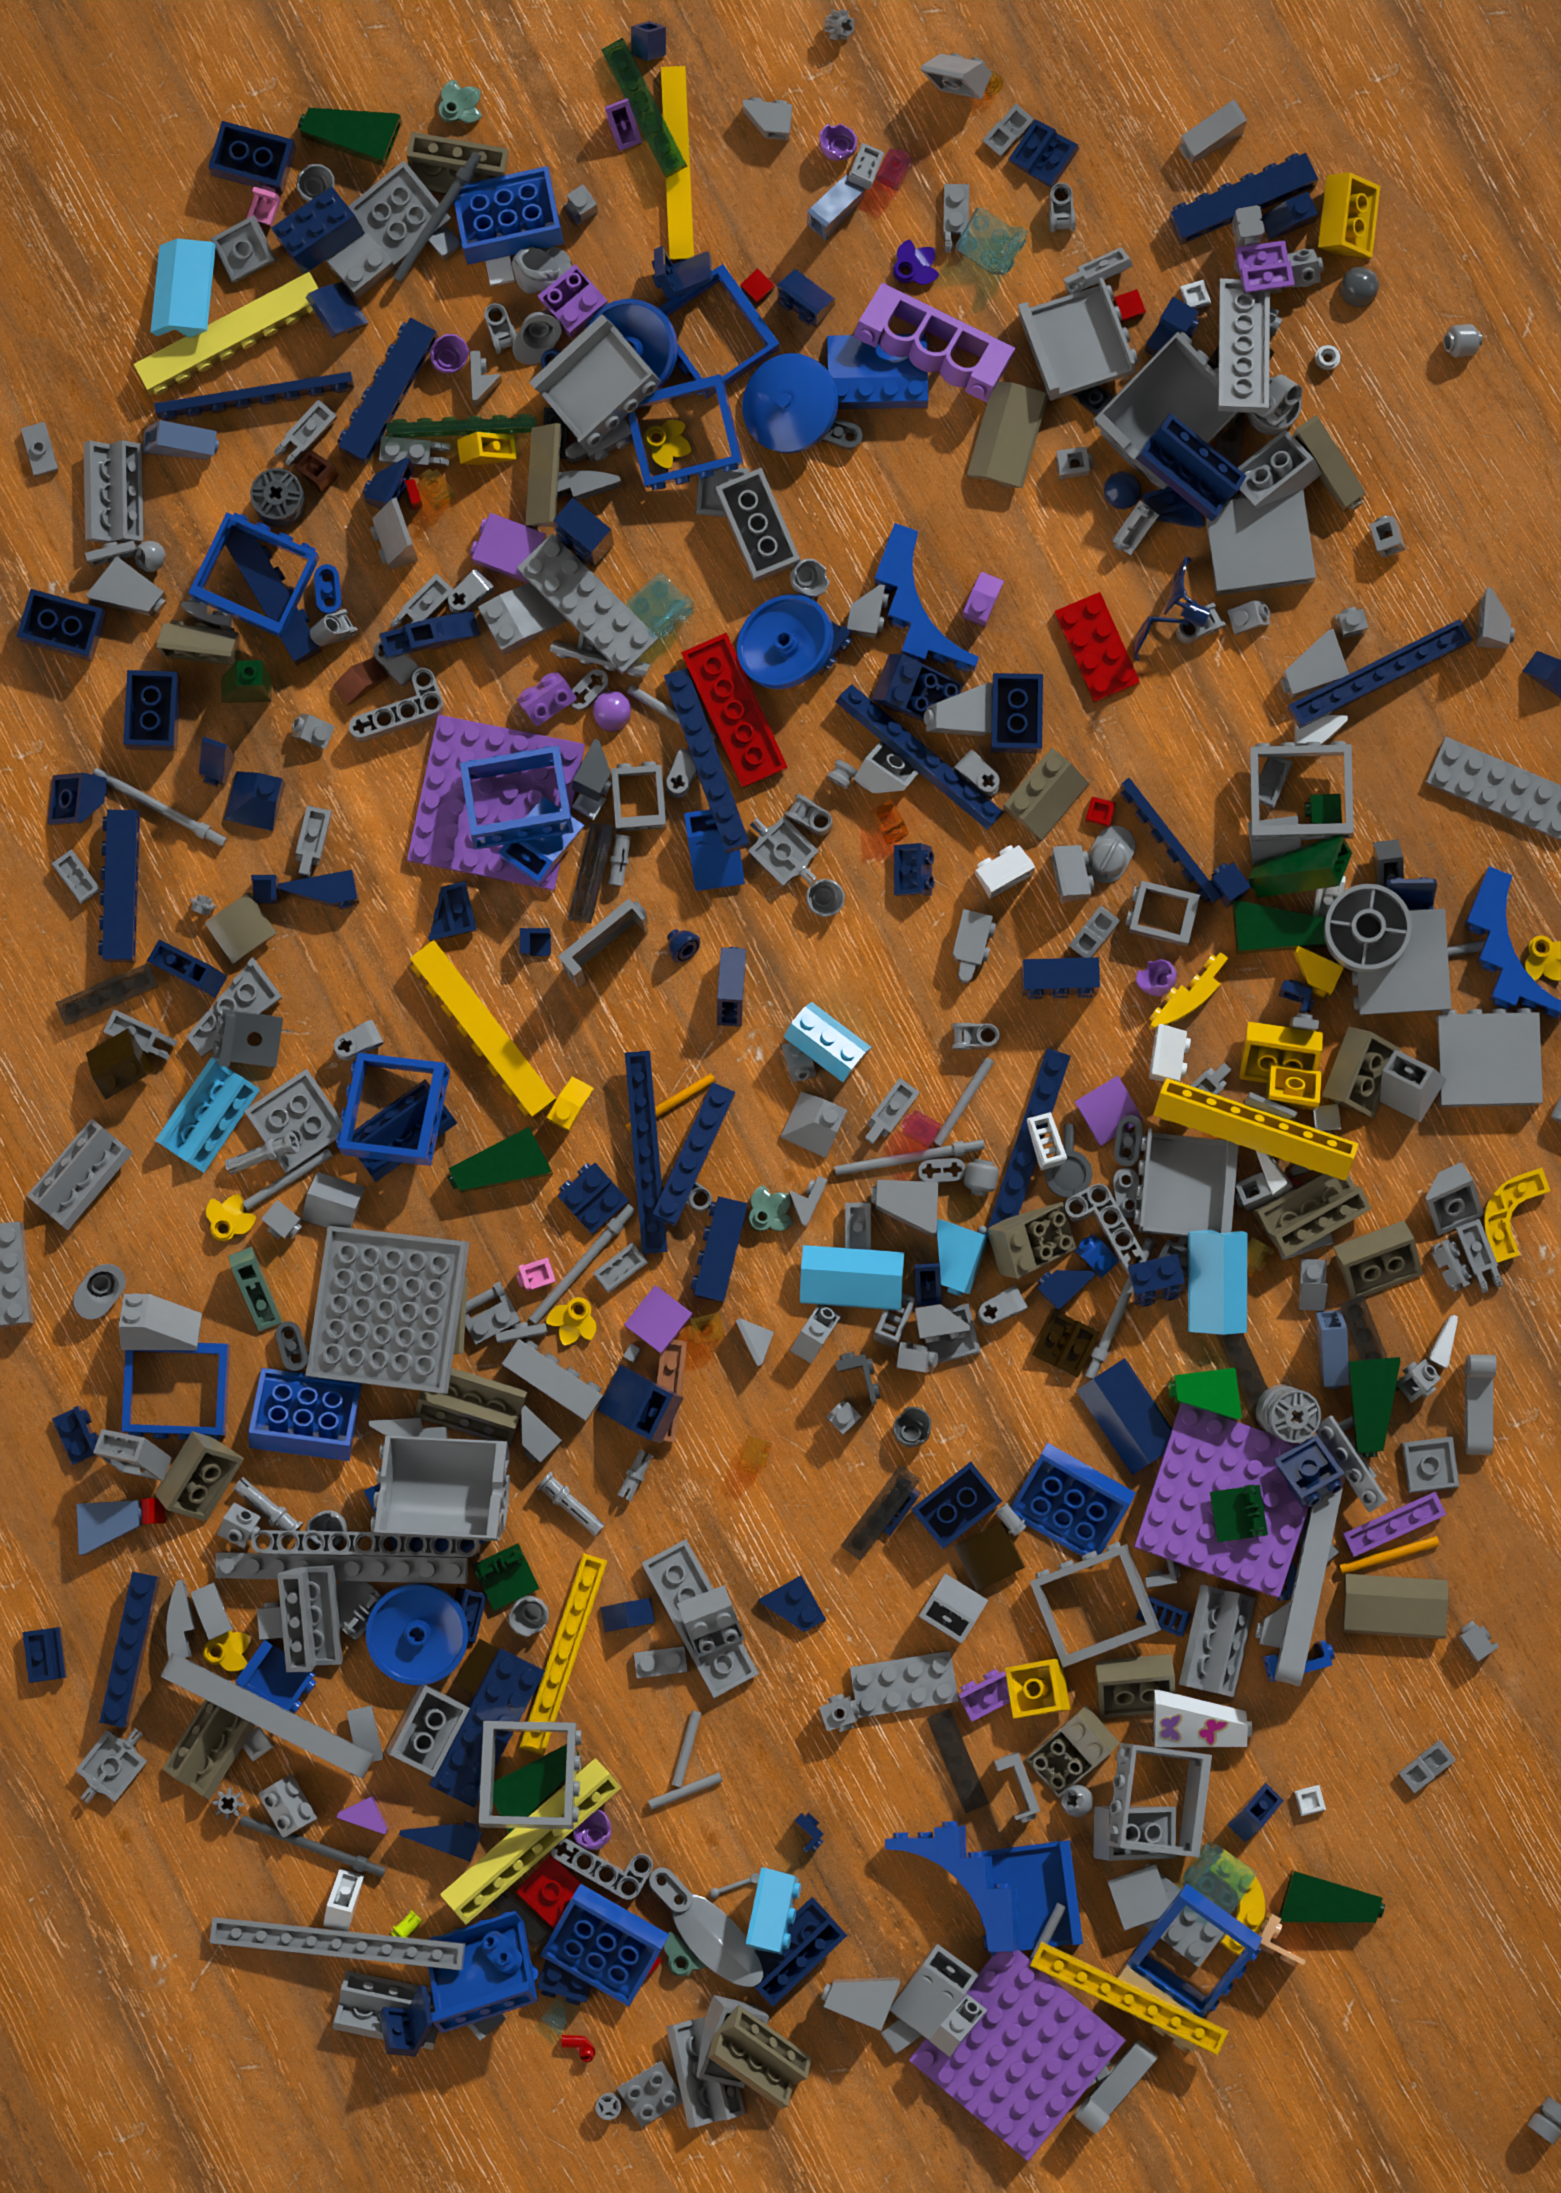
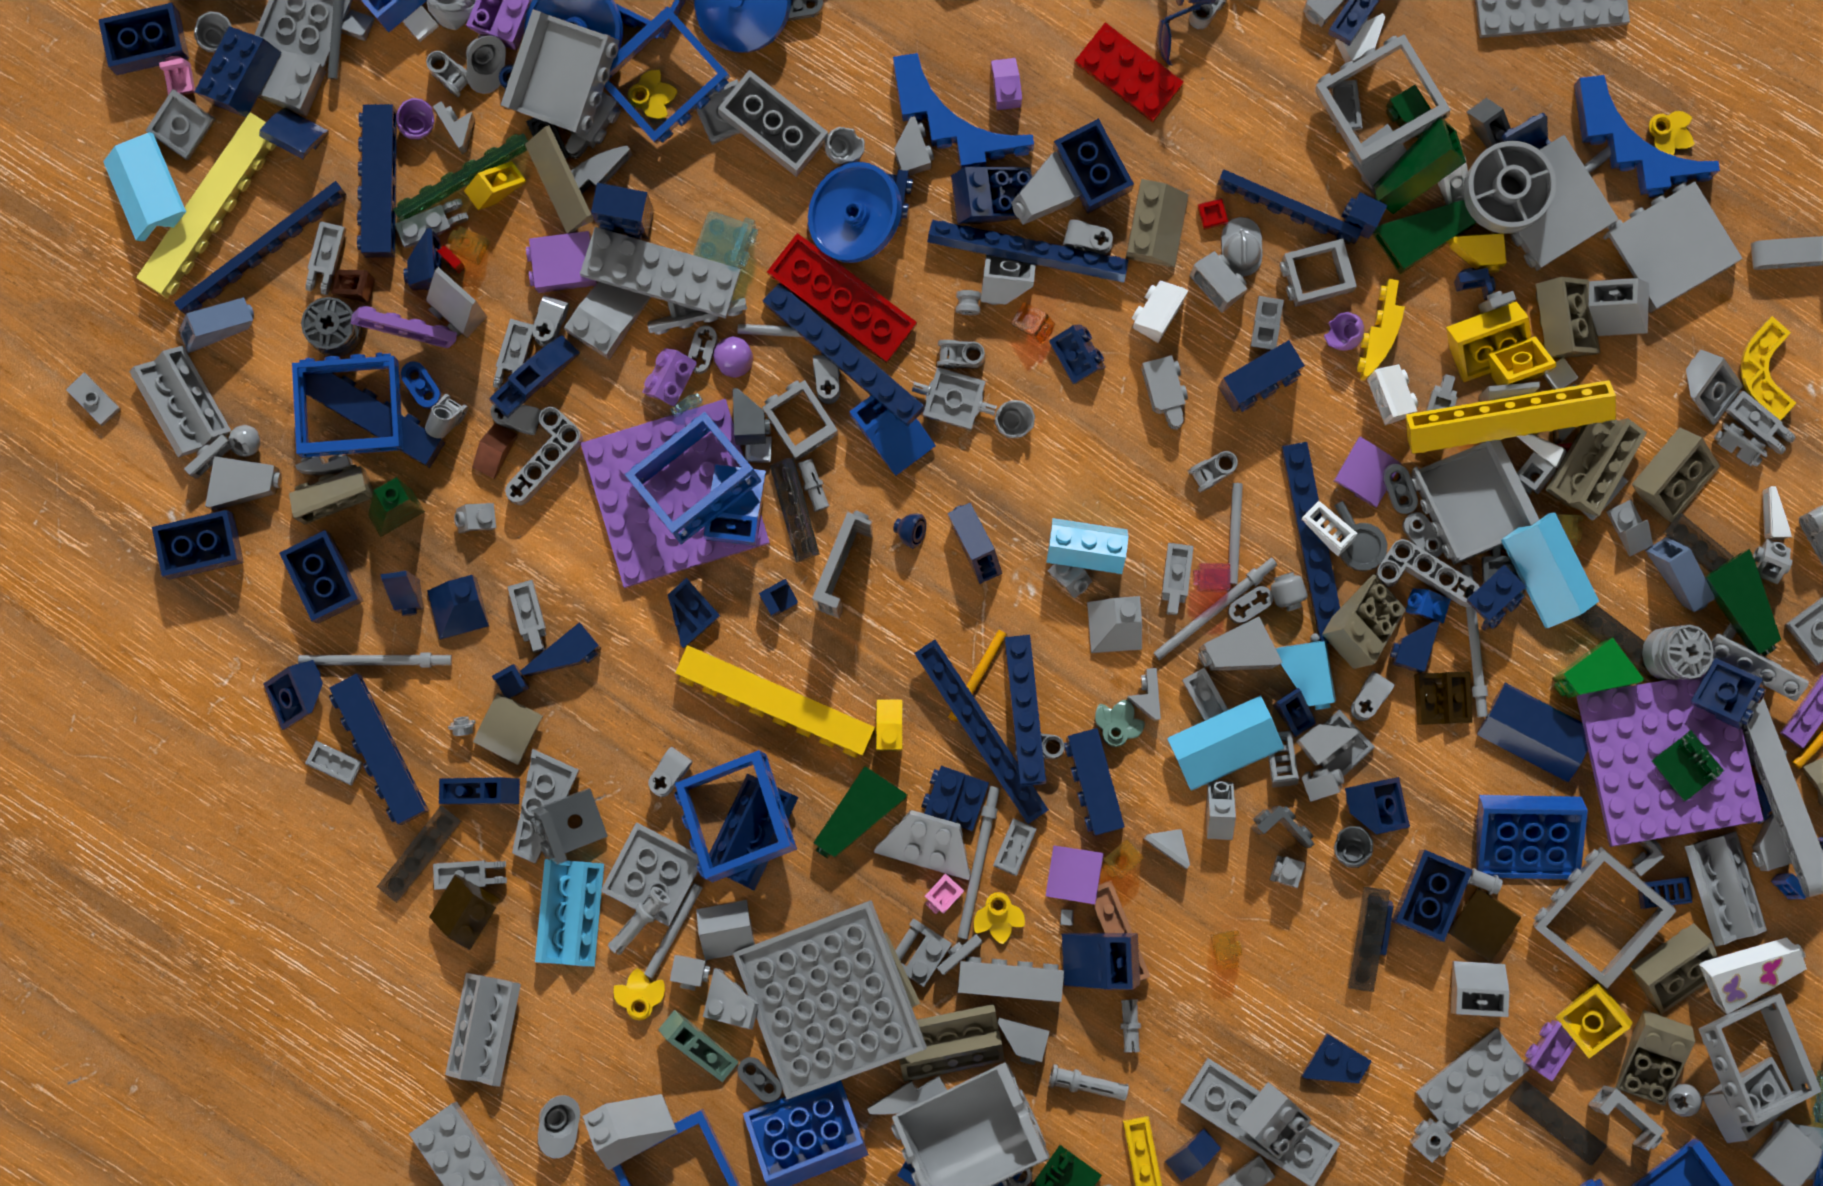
camera: 30 degrees left, 0 degrees up
(302, 1266) = (729, 1003): none -> light grey wing
(345, 537) = (411, 329): none -> medium lavender plate
(545, 730) = (690, 401): none -> clear light blue tile
(547, 1224) = (927, 843): none -> light grey wing
(955, 1404) = (1378, 805): none -> dark blue slope

